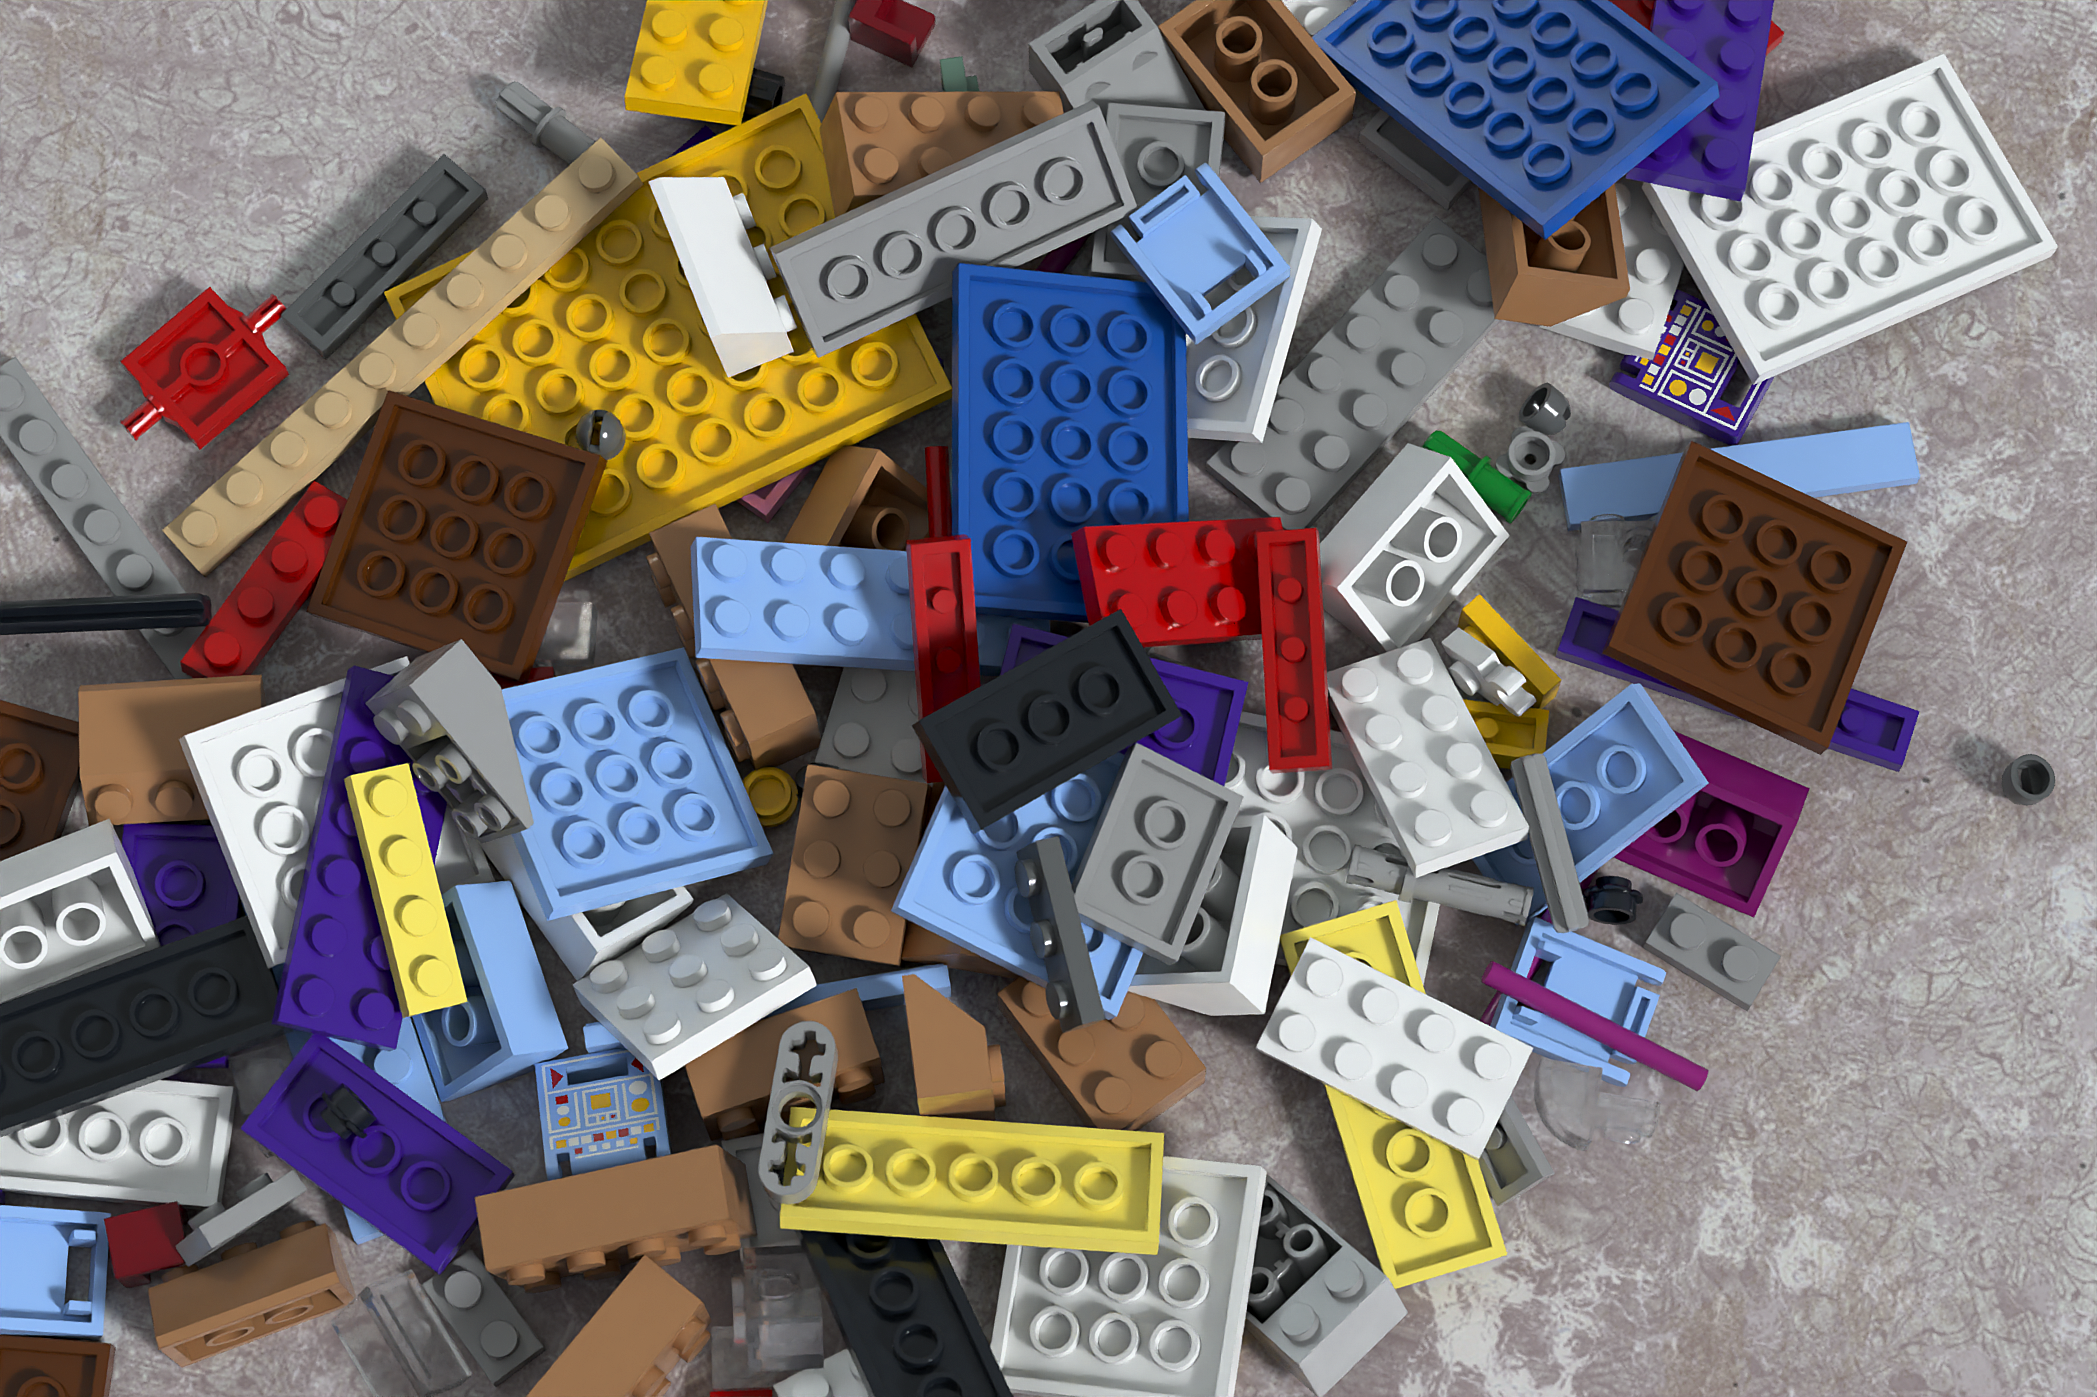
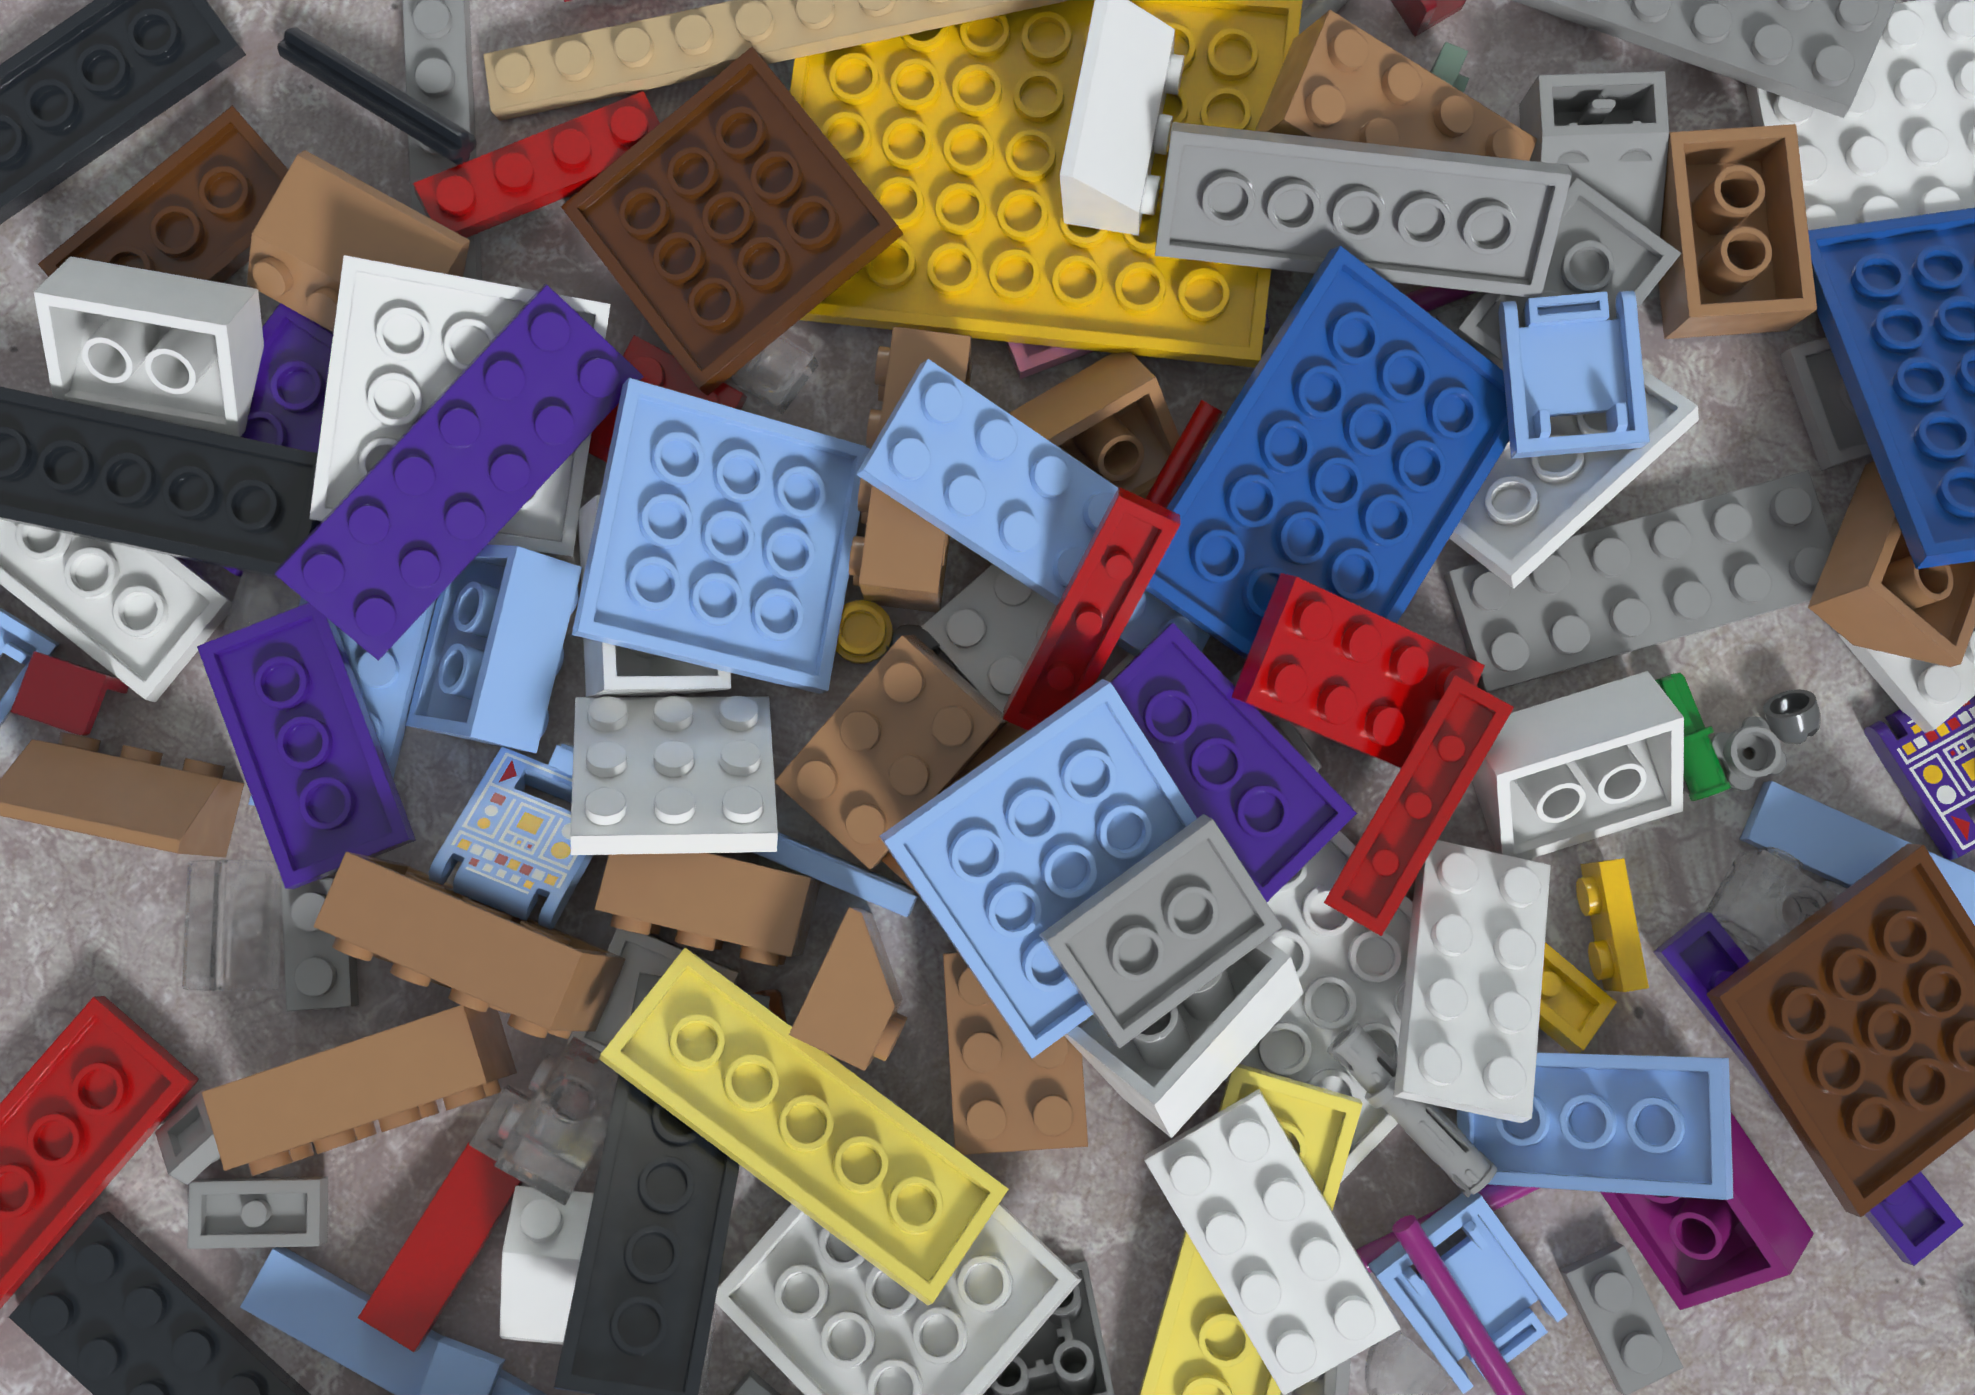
camera: 30 degrees right, 10 degrees up
(219, 1226) = (122, 723): light grey plate -> none
(346, 1112) = (290, 695): black plate -> none
(405, 890) = (467, 523): light yellow plate -> none
(460, 738) = (595, 406): light grey slope -> none
(611, 433) = (923, 212): dark grey hinge -> none
(775, 1153) = (655, 1016): light grey beam -> none
(1046, 721) = (1139, 747): black plate -> none
(1058, 935) = (1020, 961): dark grey plate -> none
(1479, 670) = (1580, 930): white plate -> none
(1549, 843) = (1540, 1143): light grey axle -> none
(1612, 900) = (1561, 1215): black plate -> none

